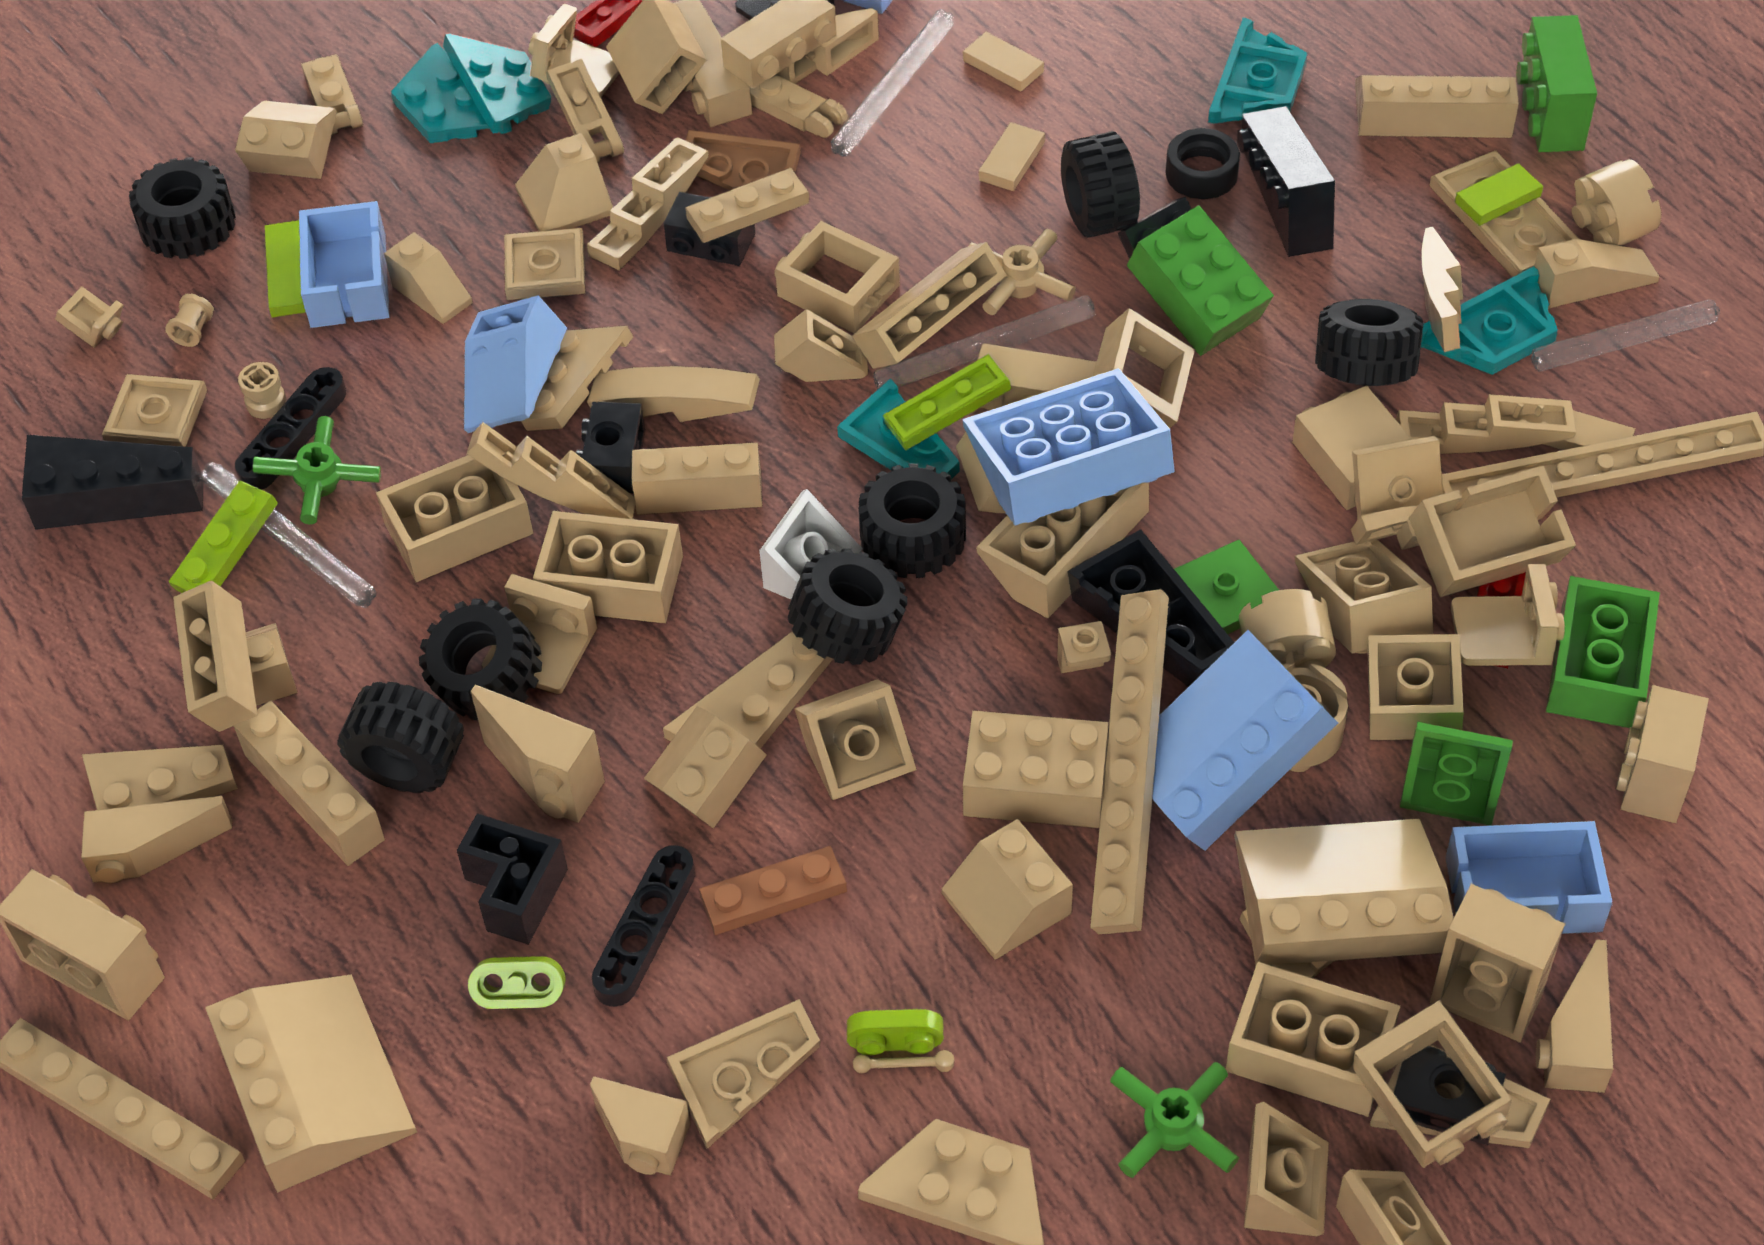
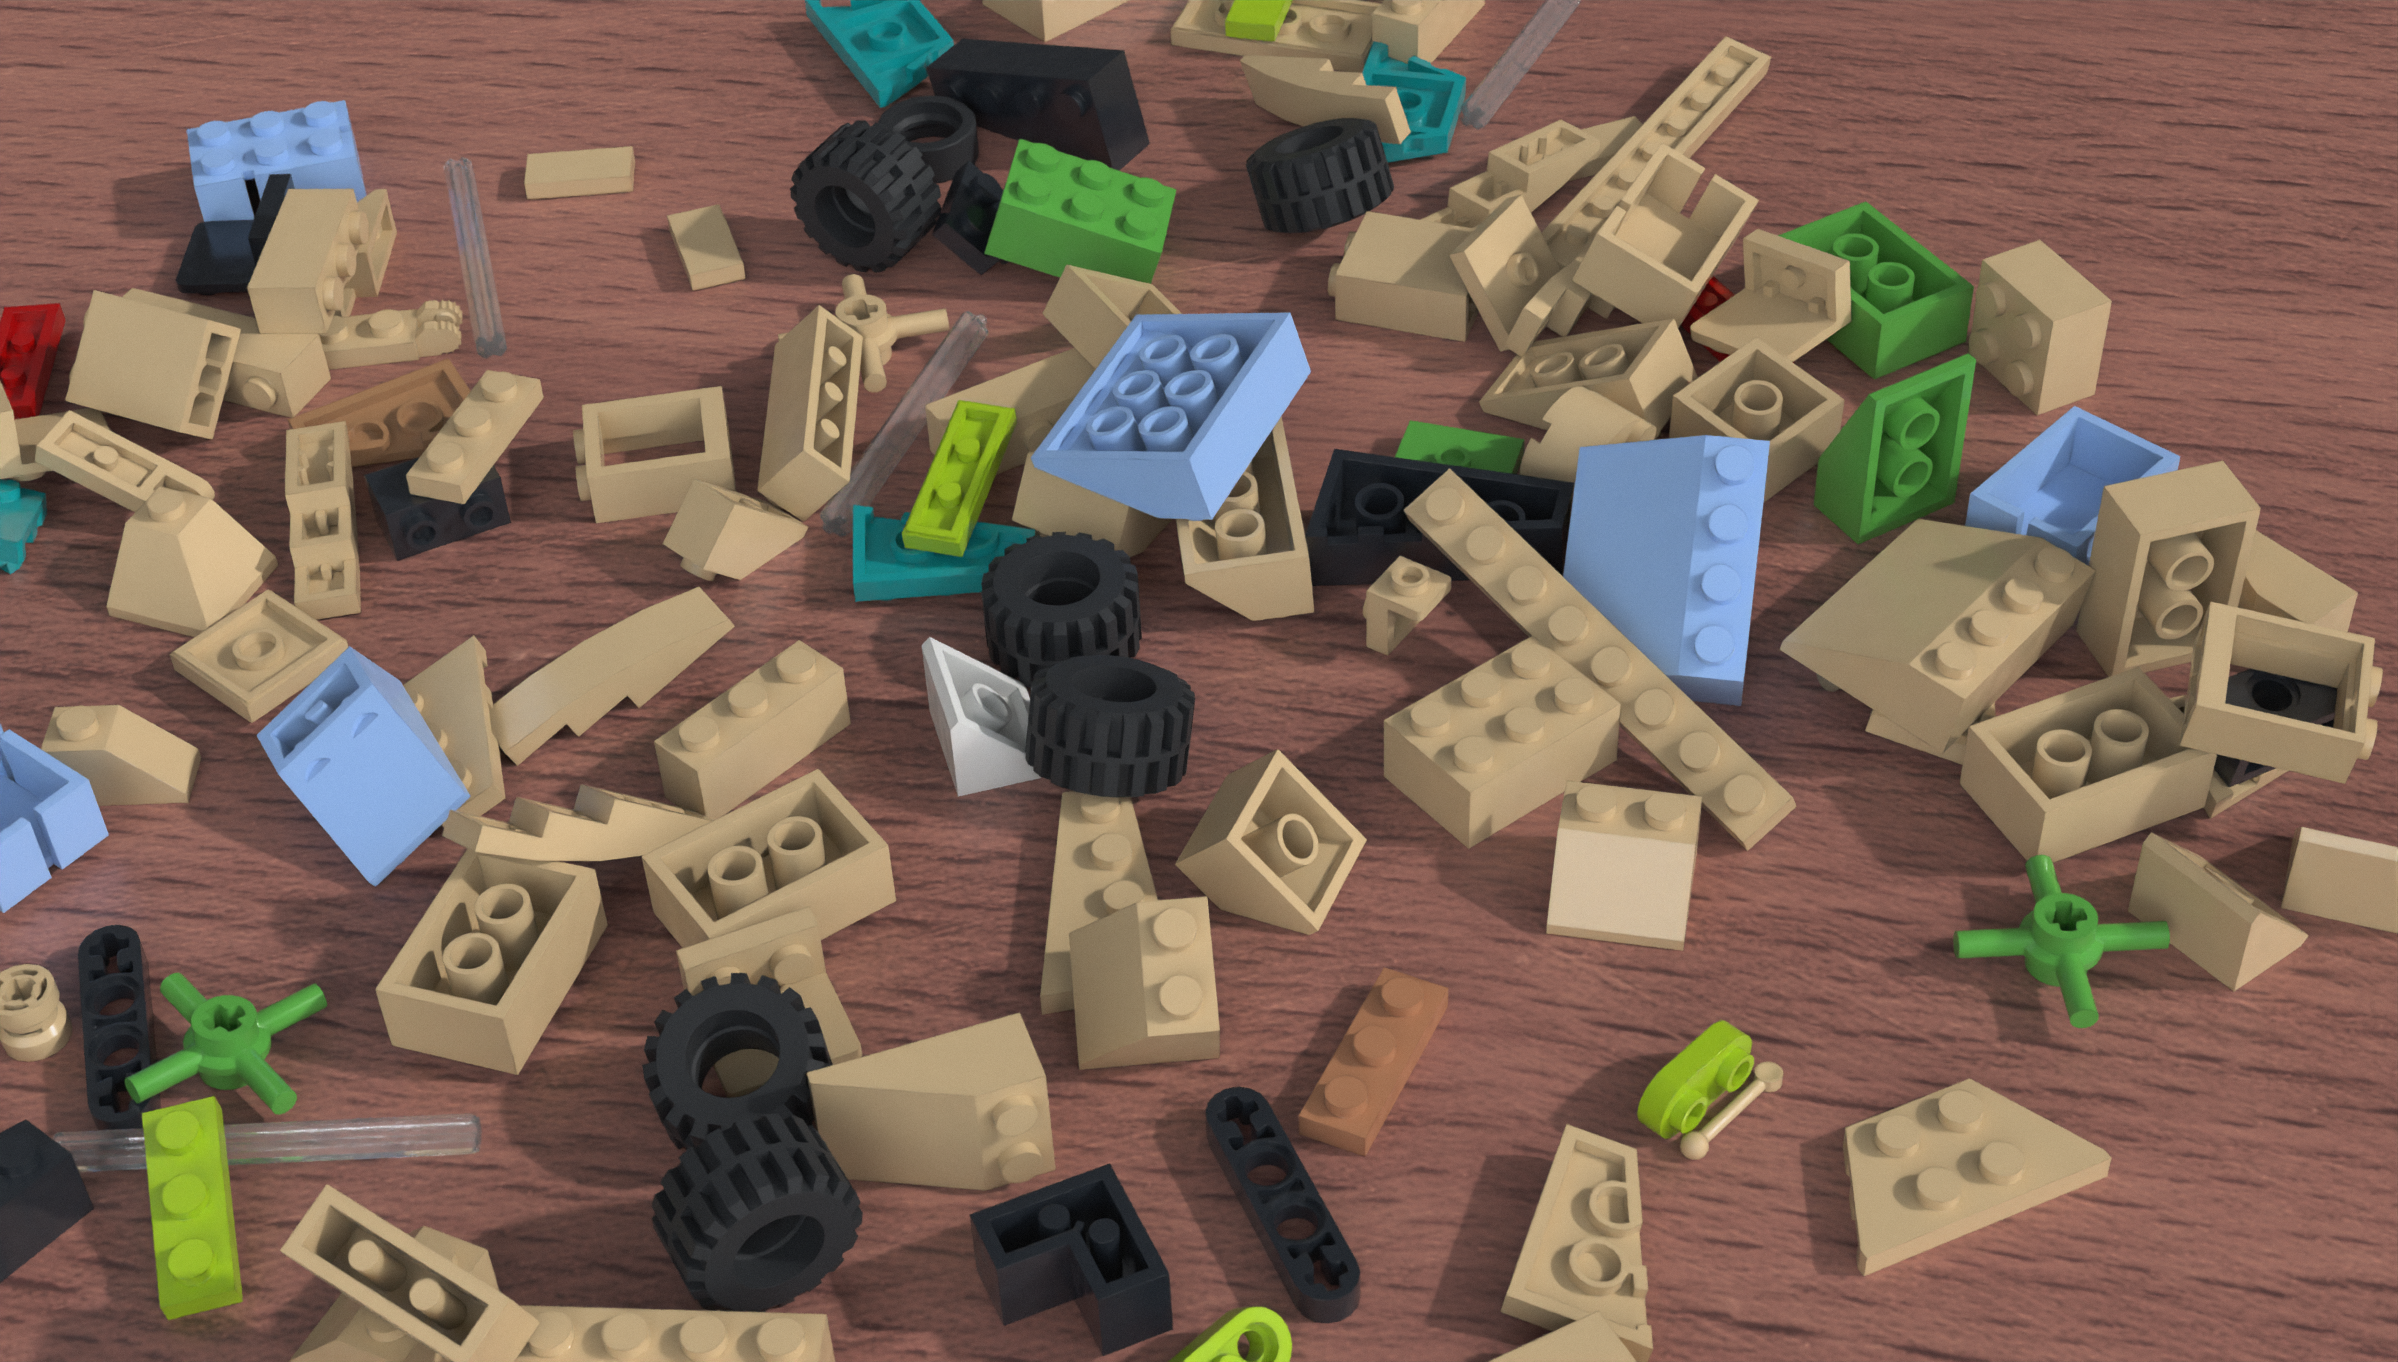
camera: 45 degrees left, 10 degrees down
(610, 438) = (597, 751): black brick -> none

